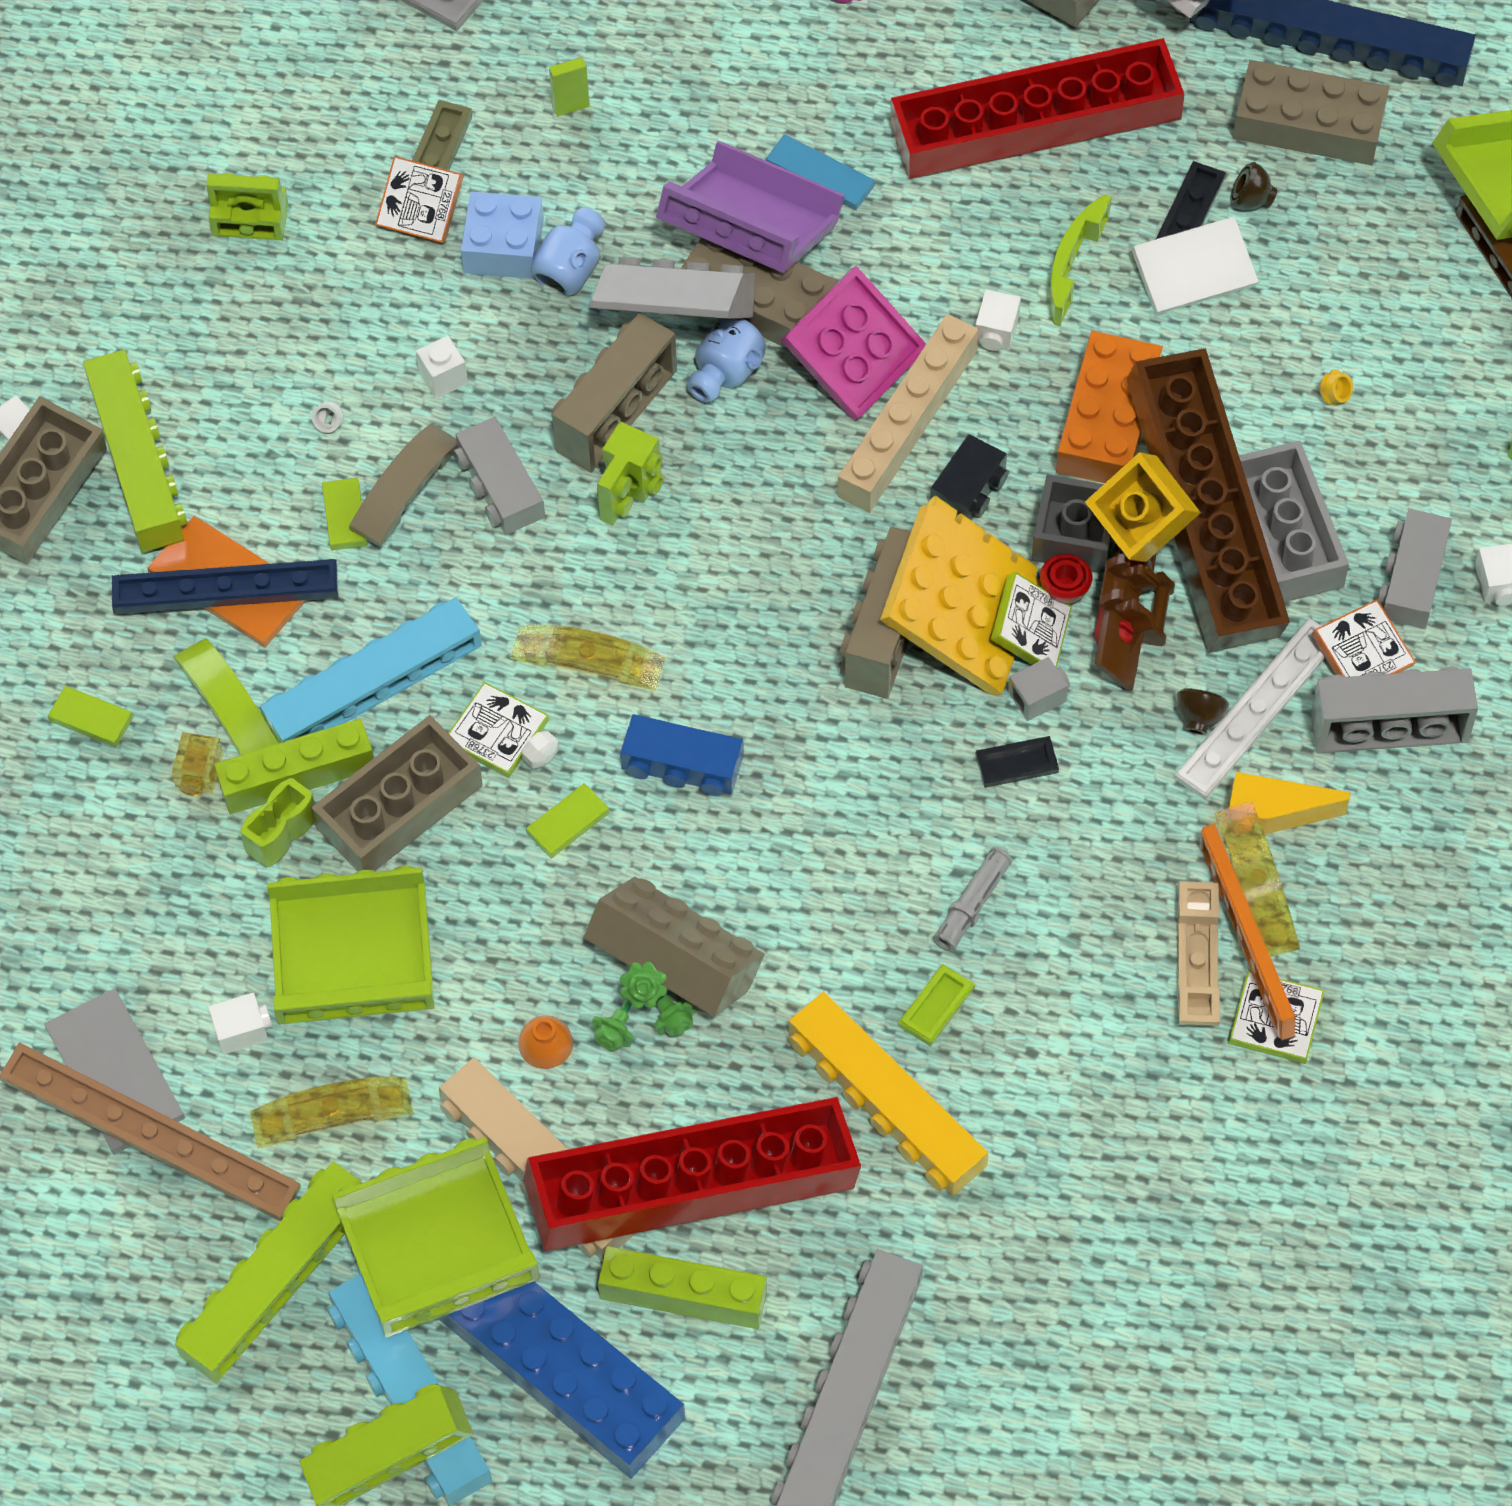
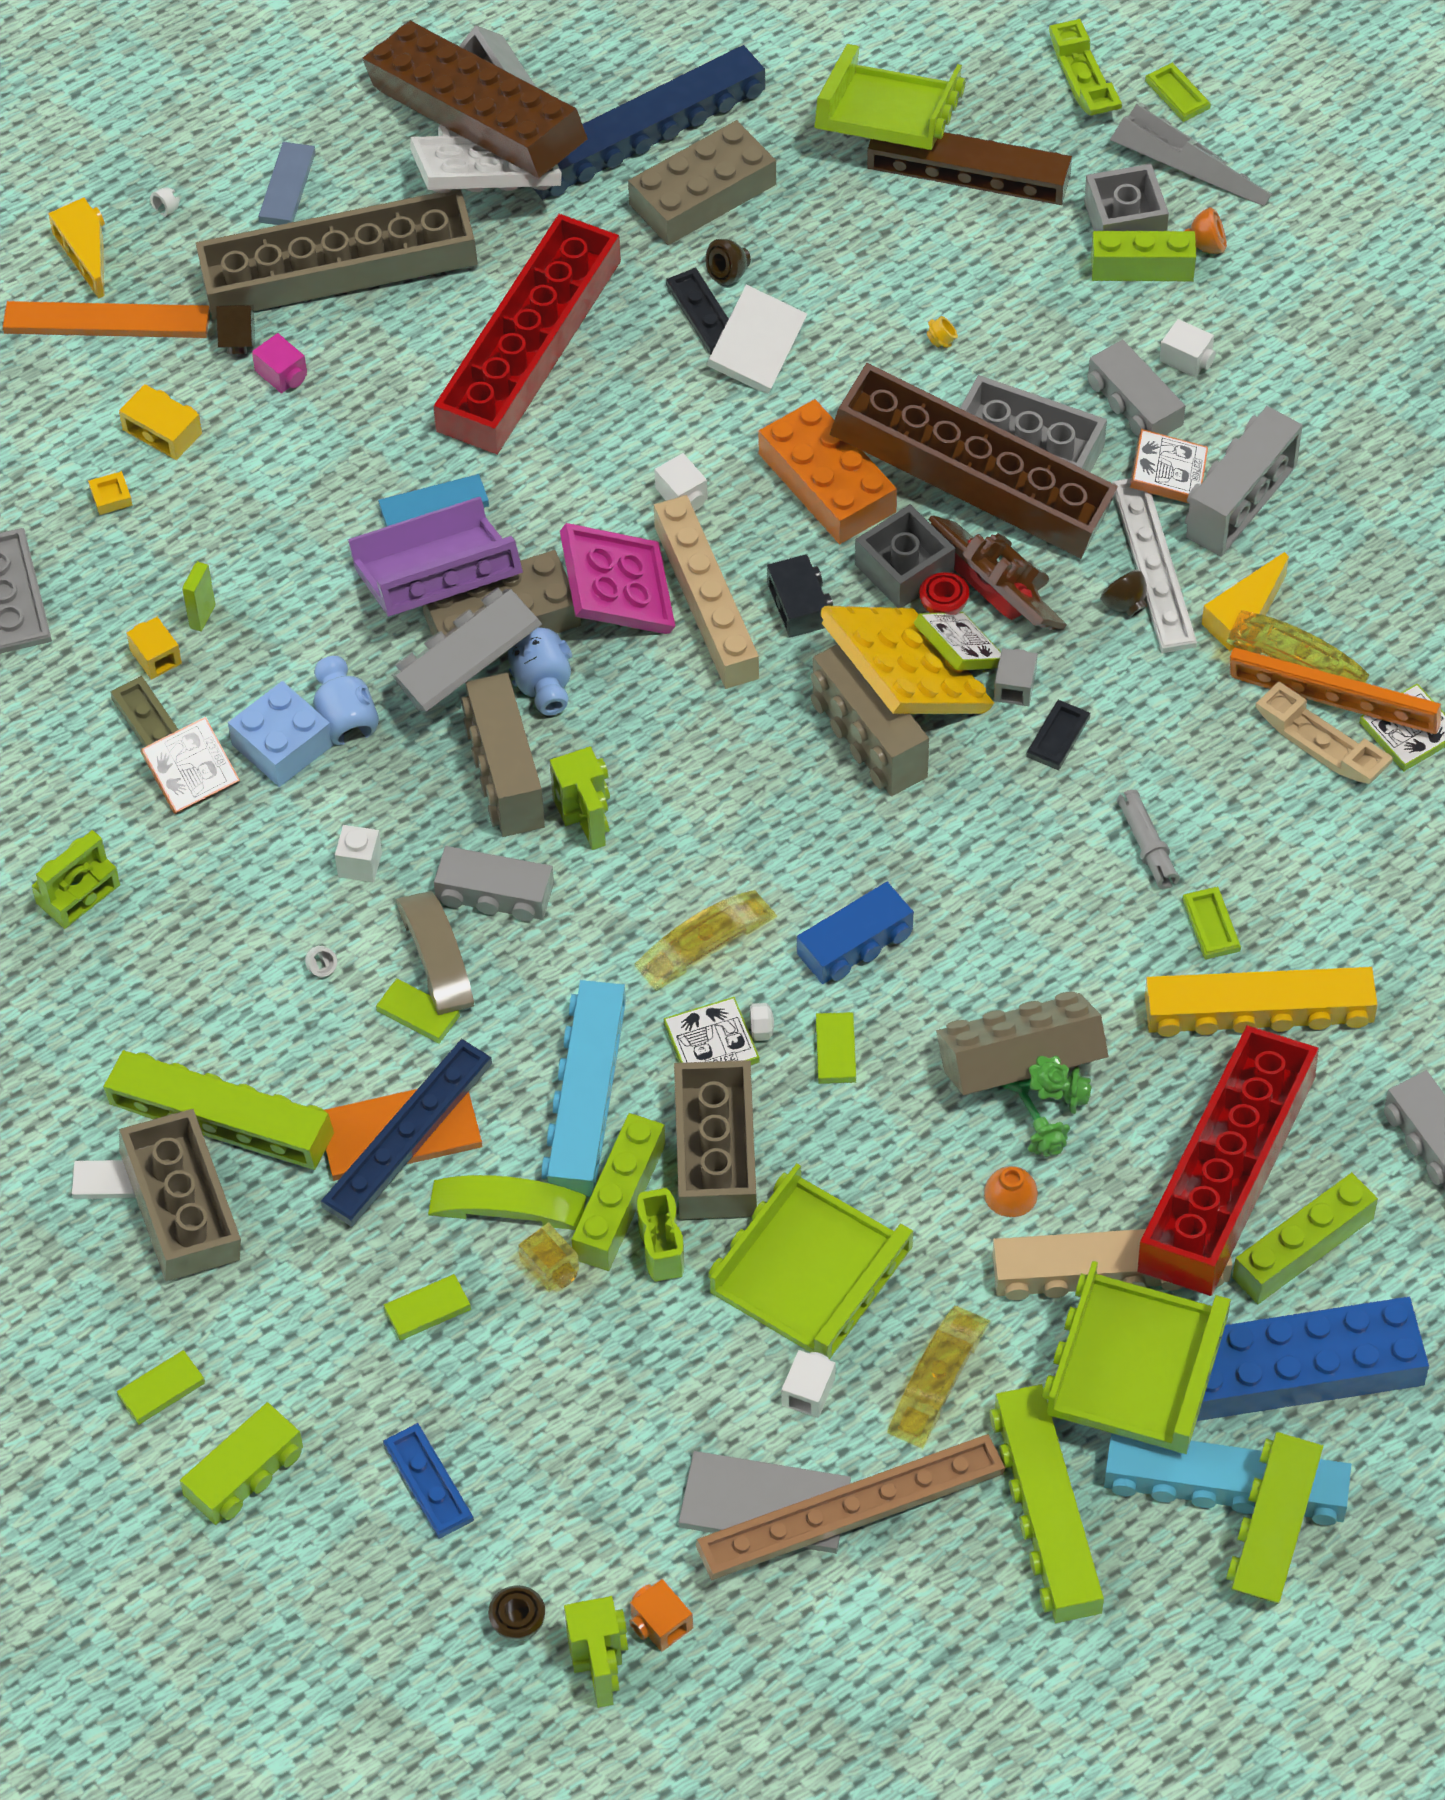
camera: 50 degrees left, 5 degrees down
(504, 96) = (154, 647): none -> yellow brick
(1086, 225) = (692, 430): lime slope -> none
(1142, 507) = (956, 493): yellow brick -> none

